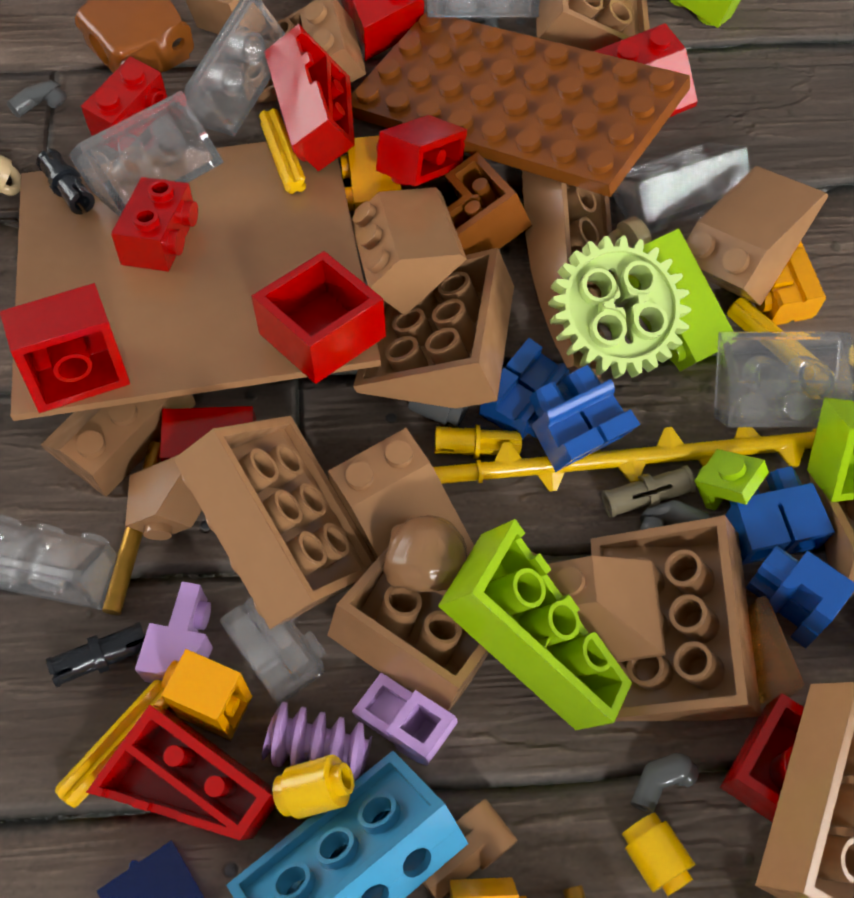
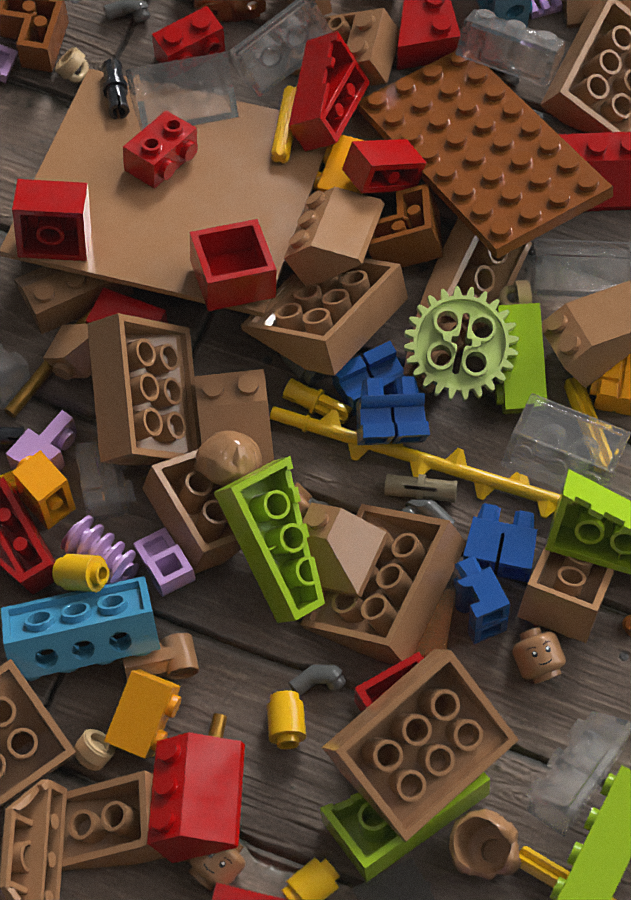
camera: 30 degrees right, 0 degrees up
(730, 478) = (478, 501): lime bracket -> none

